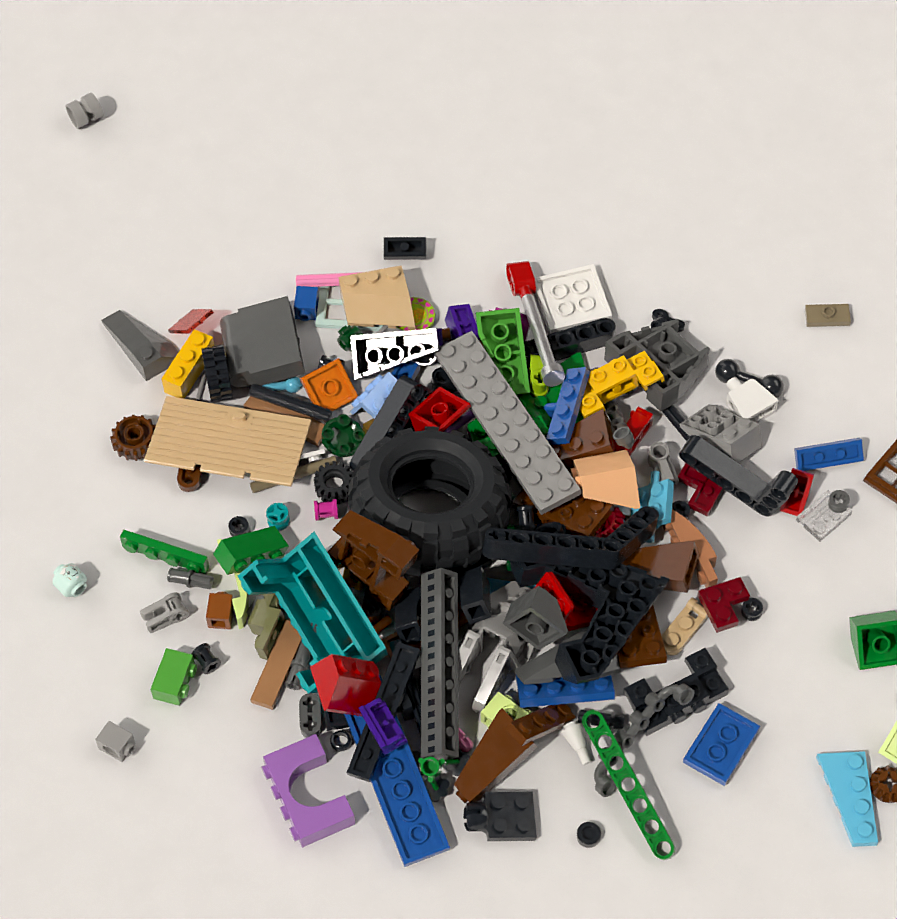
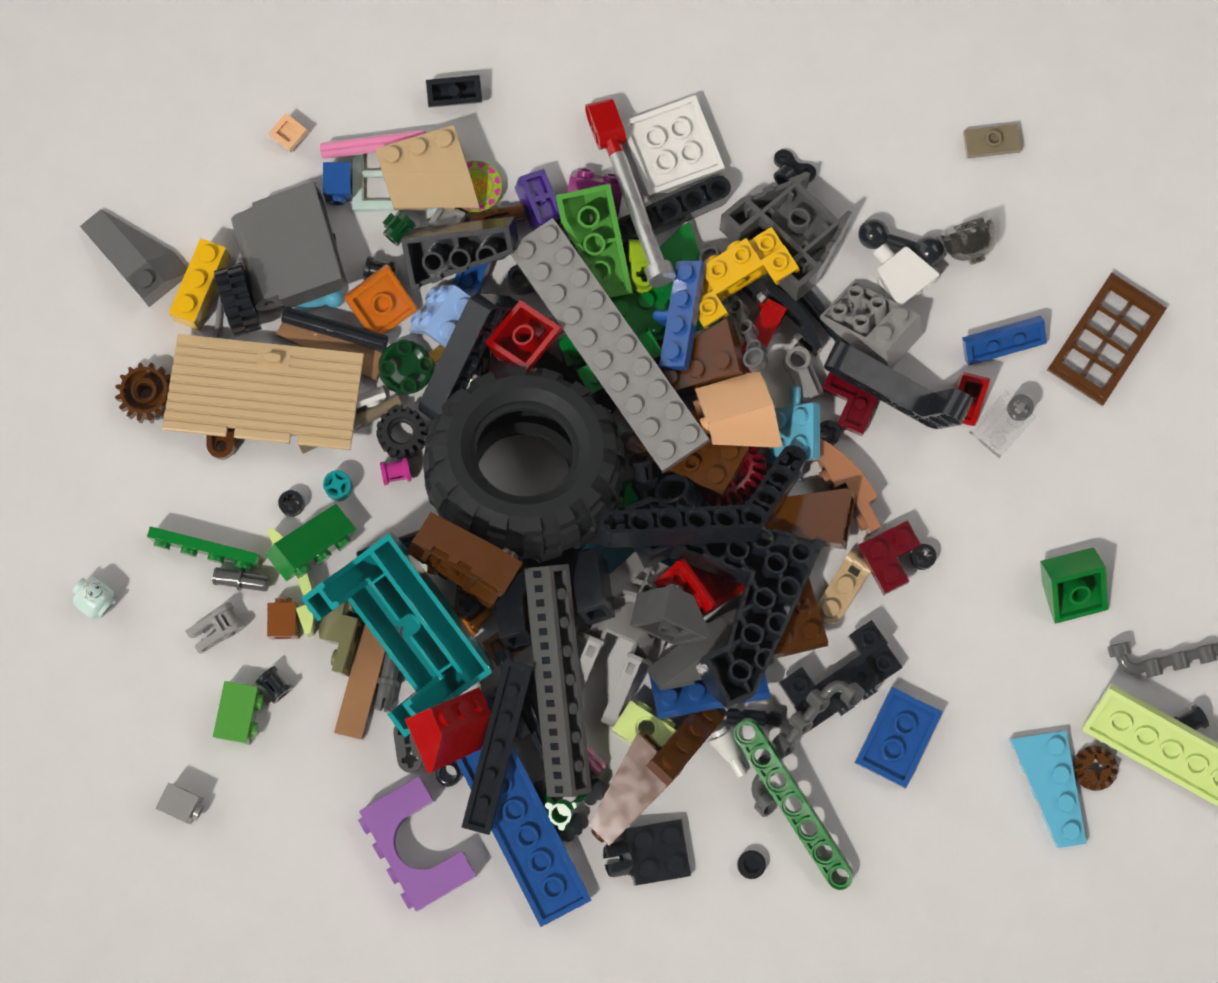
camera: 10 degrees left, 20 degrees up
(190, 321) = (194, 222): clear red piece -> none
(272, 267) = (288, 132): none -> light nougat plate
(383, 725) = (499, 771): dark purple hinge -> none
(631, 400) = (807, 334): none -> black slope
(805, 379) = (971, 240): none -> clear smoke cylinder

